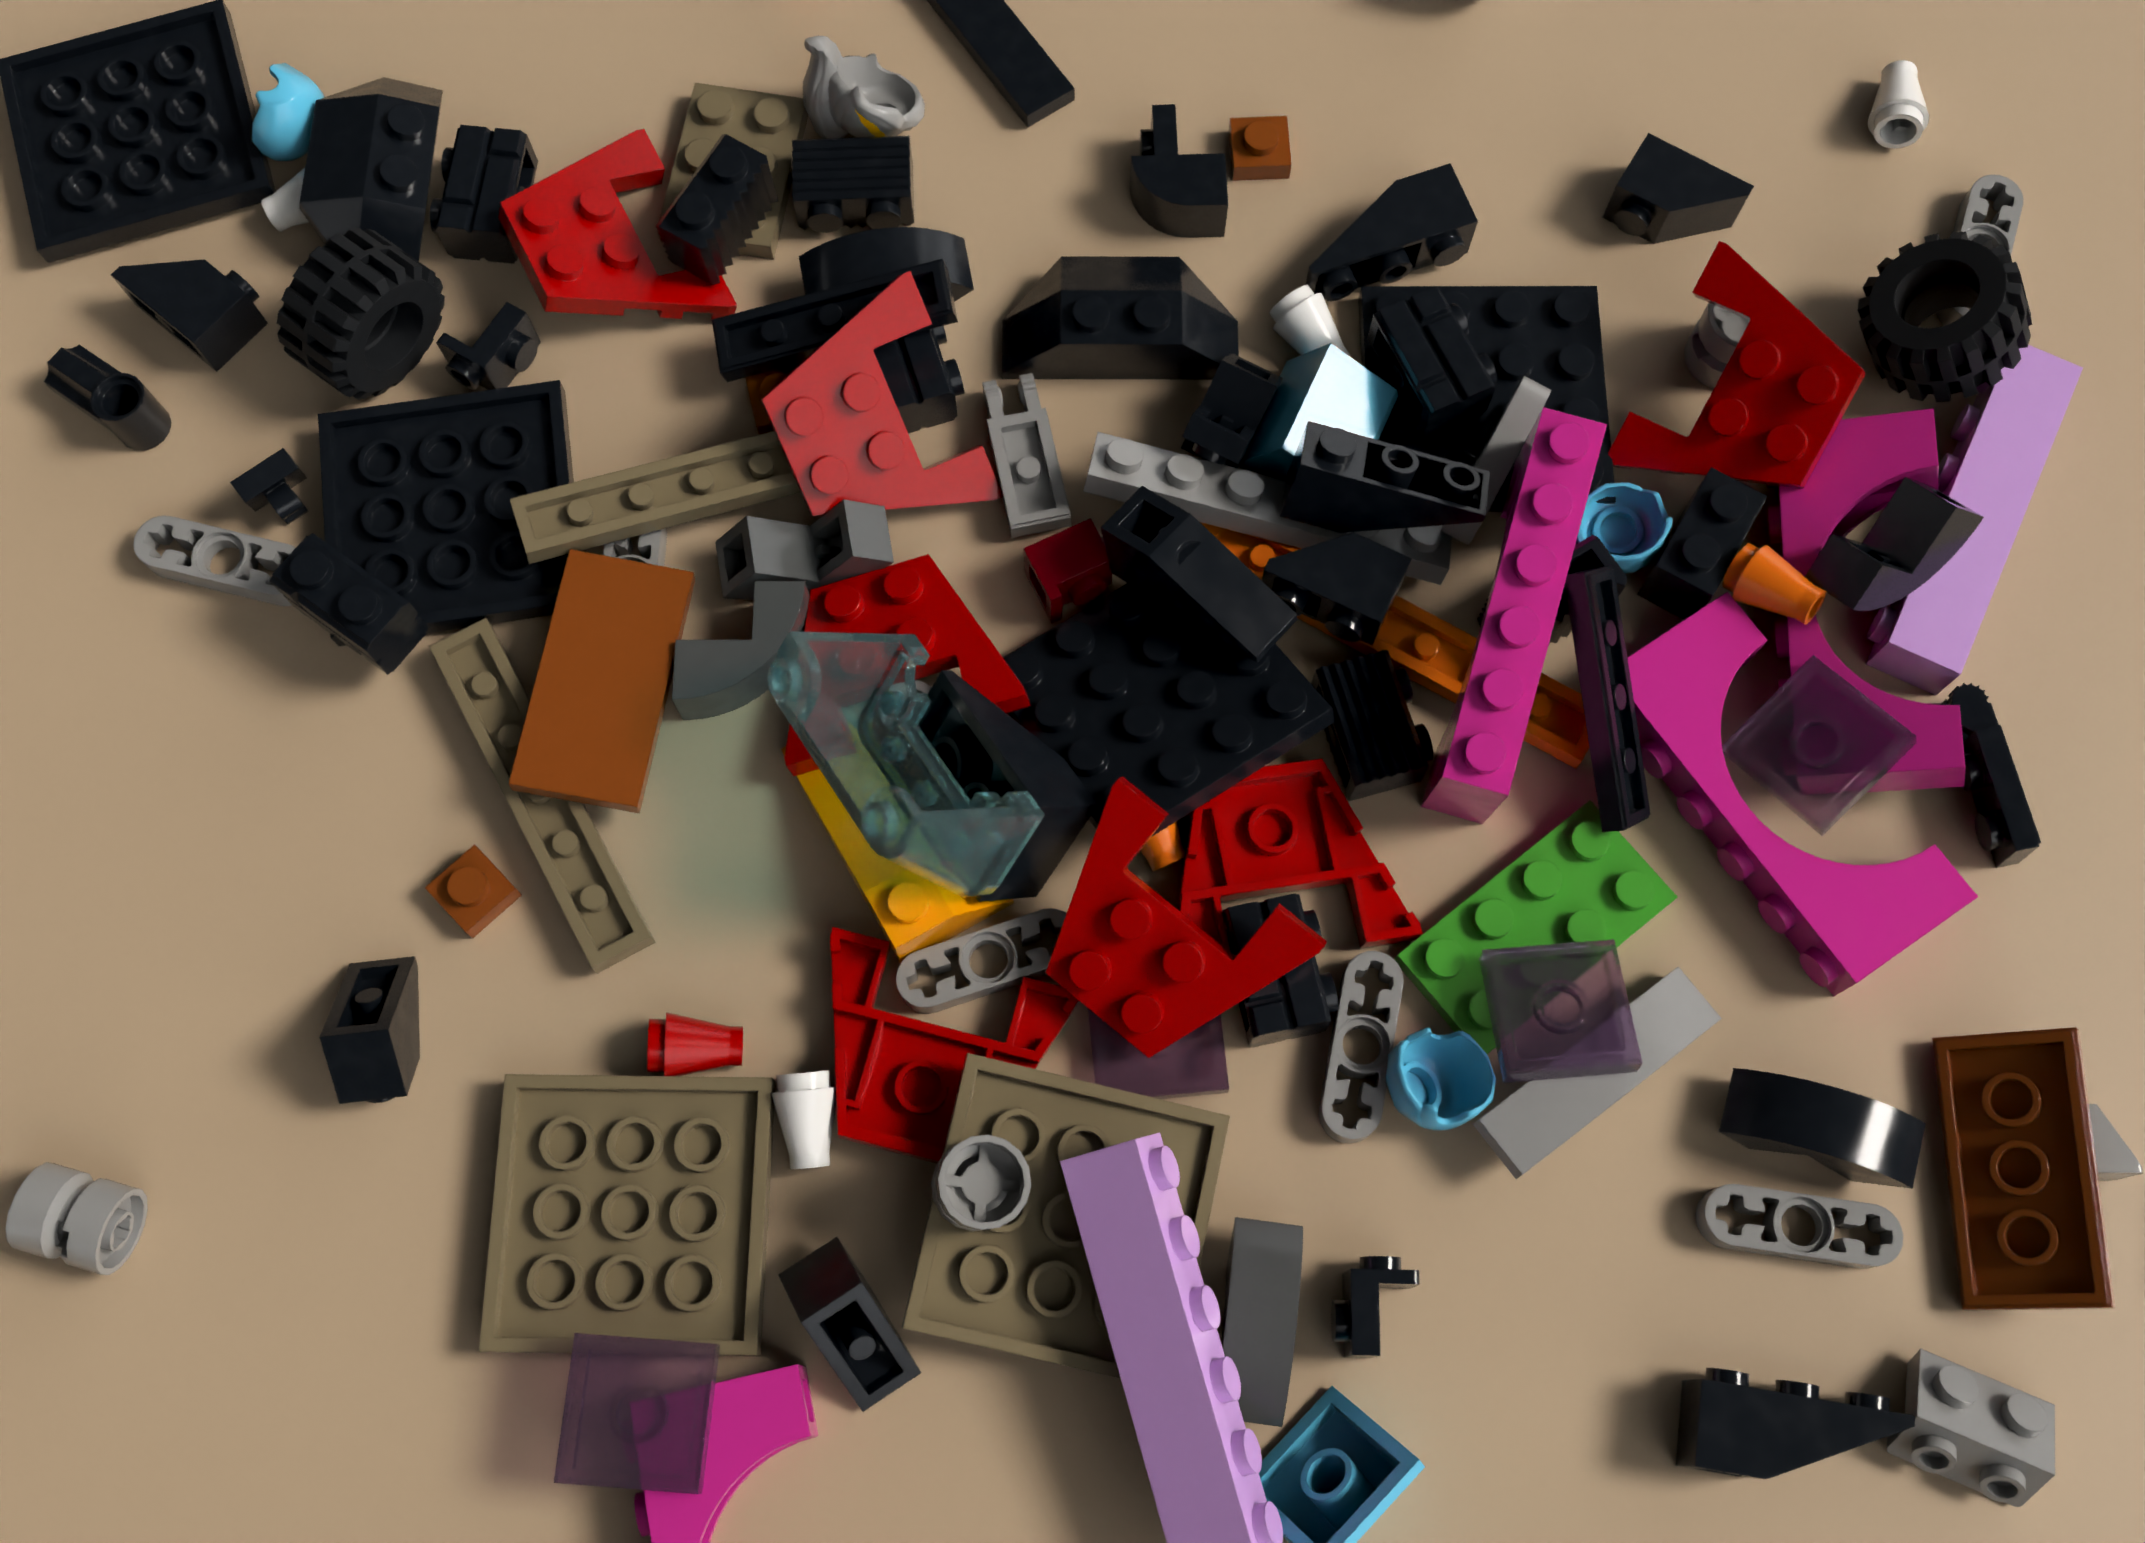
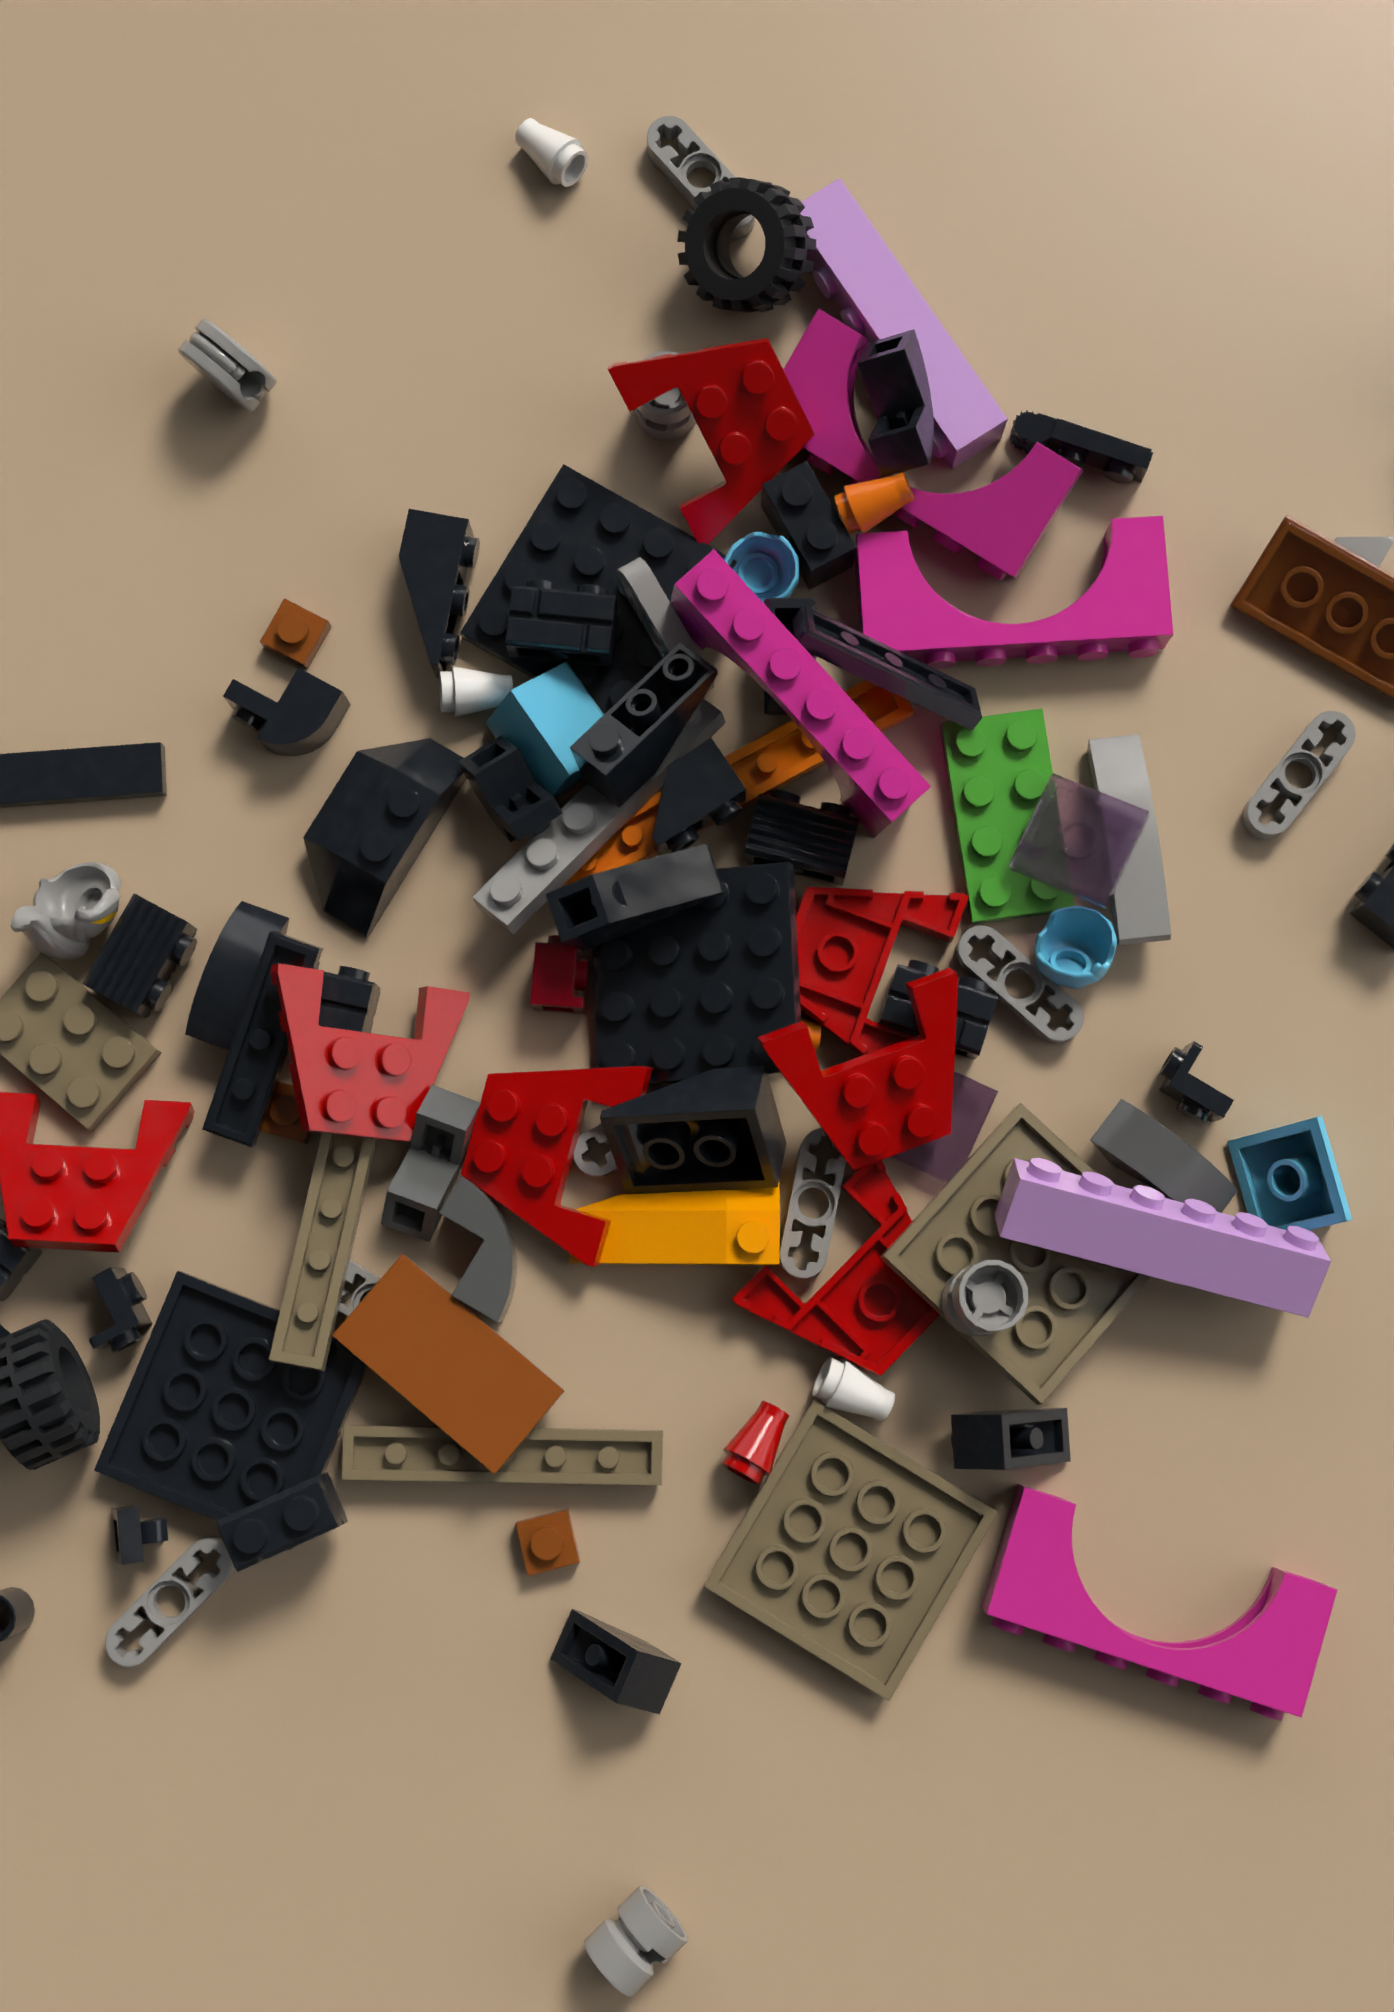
camera: 55 degrees left, 10 degrees up
(637, 1413) = (999, 1612): clear purple tile -> none
(718, 209) = (114, 1074): black brick -> none
(859, 720) = (610, 1200): clear light blue windscreen -> none
(1026, 461) = (451, 959): light grey hinge -> none
(1674, 194) = (524, 363): black slope -> none
(1818, 745) = (1002, 549): clear purple tile -> none
(1831, 1125) = (1248, 719): black brick -> none

